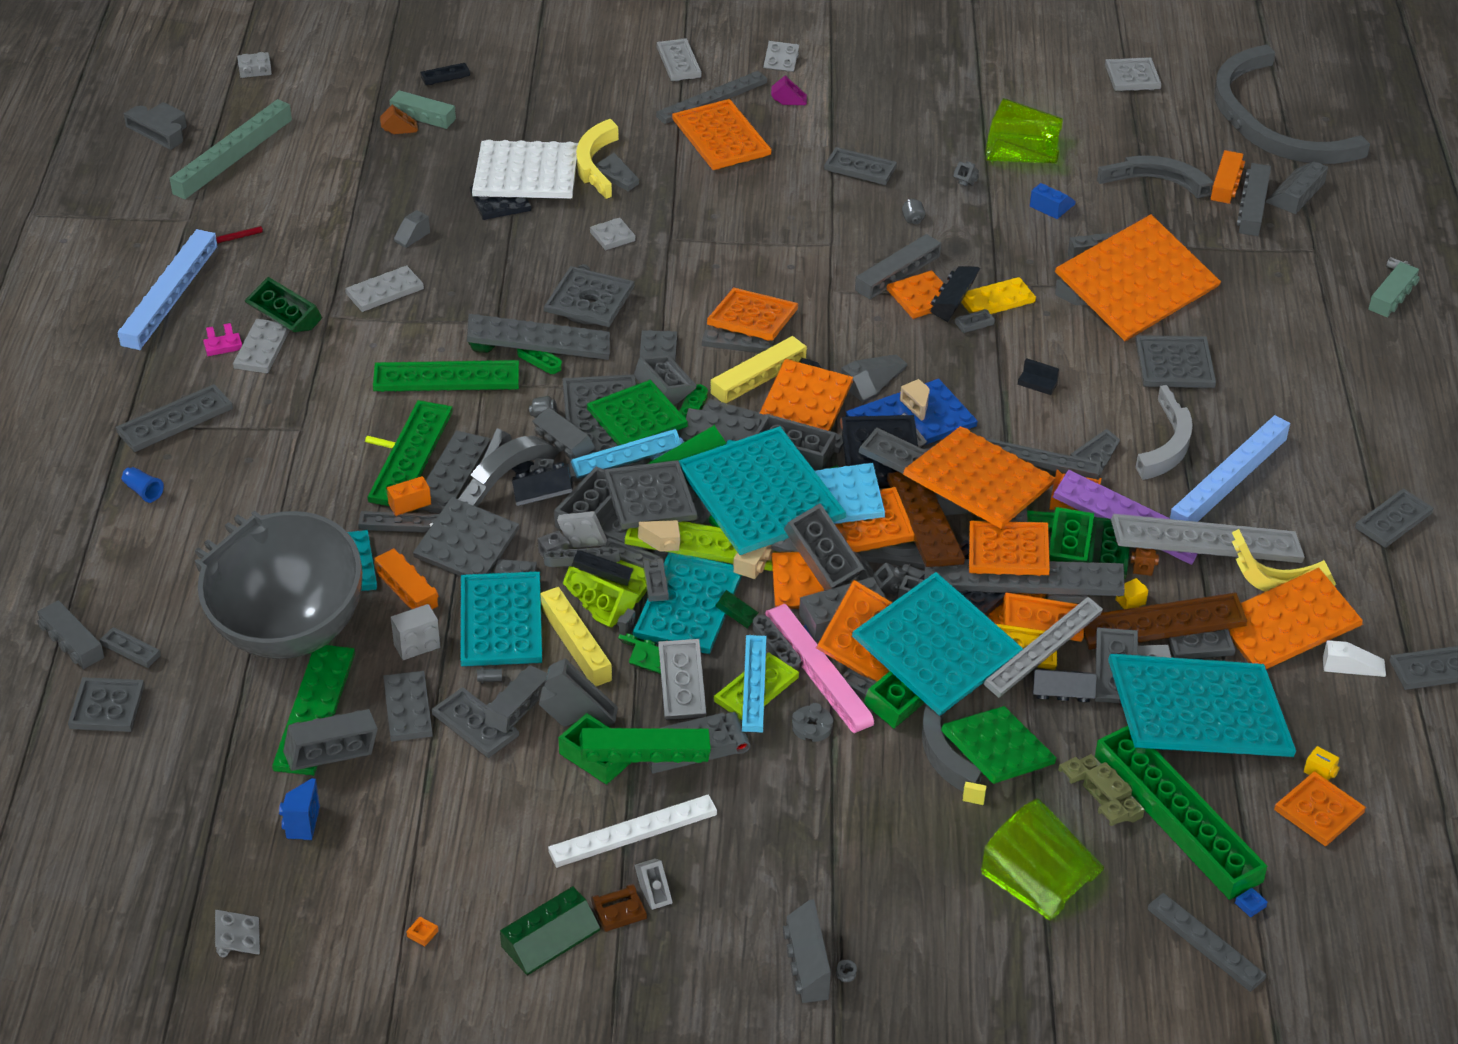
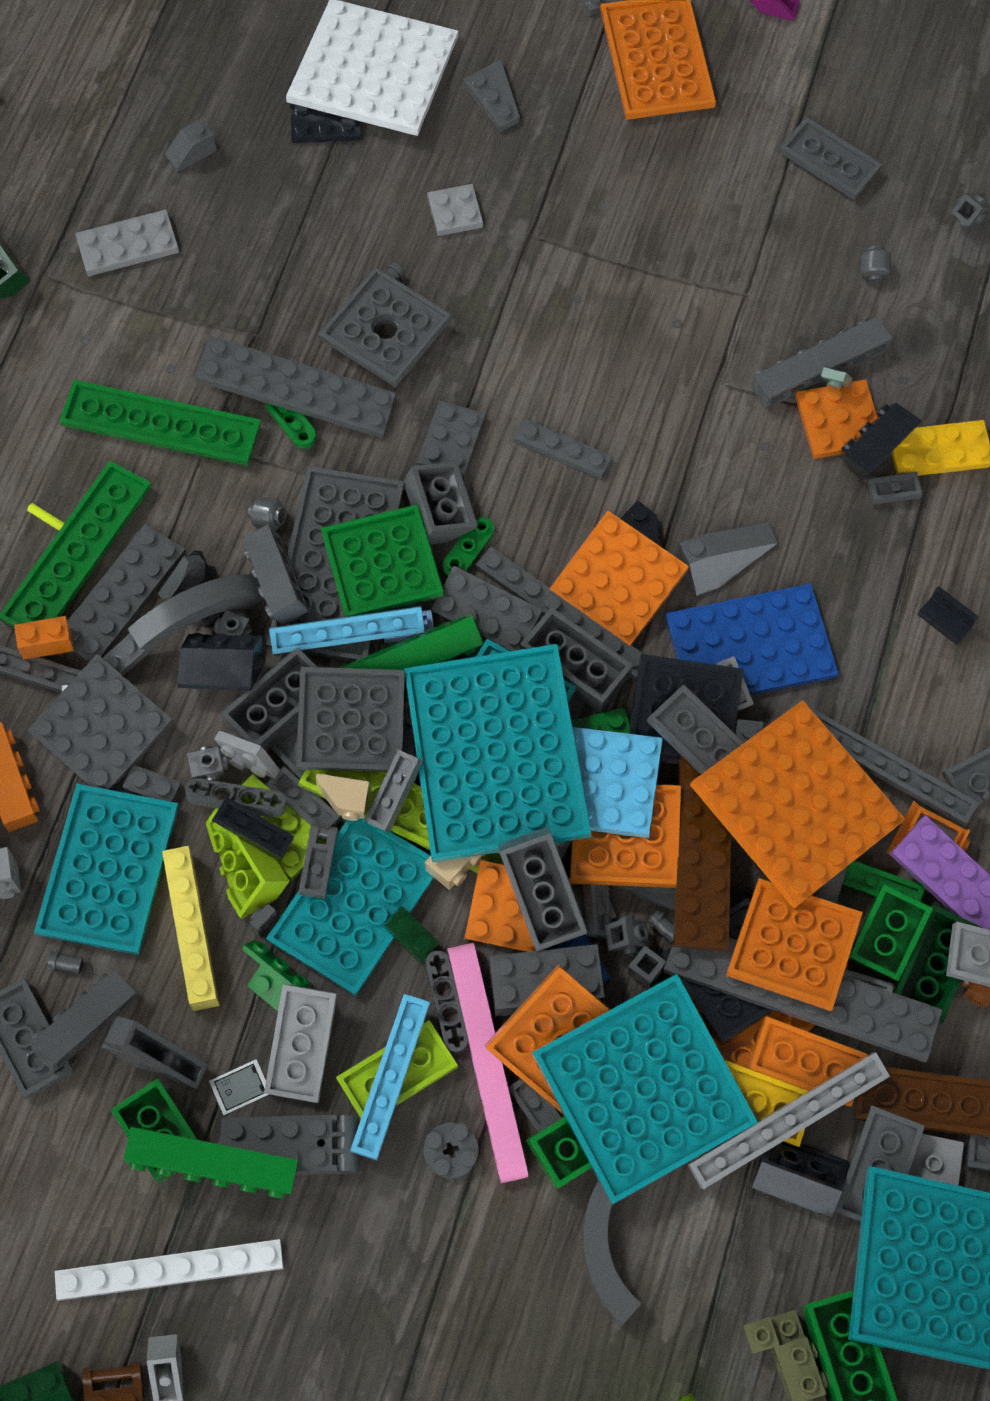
camera: 15 degrees right, 25 degrees up
(589, 144) = (472, 36): light yellow arch -> none
(645, 718) = (239, 1087): none -> sticker
(696, 525) = (393, 791): none -> dark grey plate
(752, 314) = (593, 409): orange plate -> none
(756, 370) = (571, 510): light yellow brick -> none
(912, 268) = (836, 378): none -> sand green plate
(916, 397) = (764, 622): tan slope -> none
(974, 793) = (620, 1332): light yellow tile -> none
(998, 744) = (677, 1263): green plate -> none
(1134, 594) = (948, 1043): yellow brick -> none

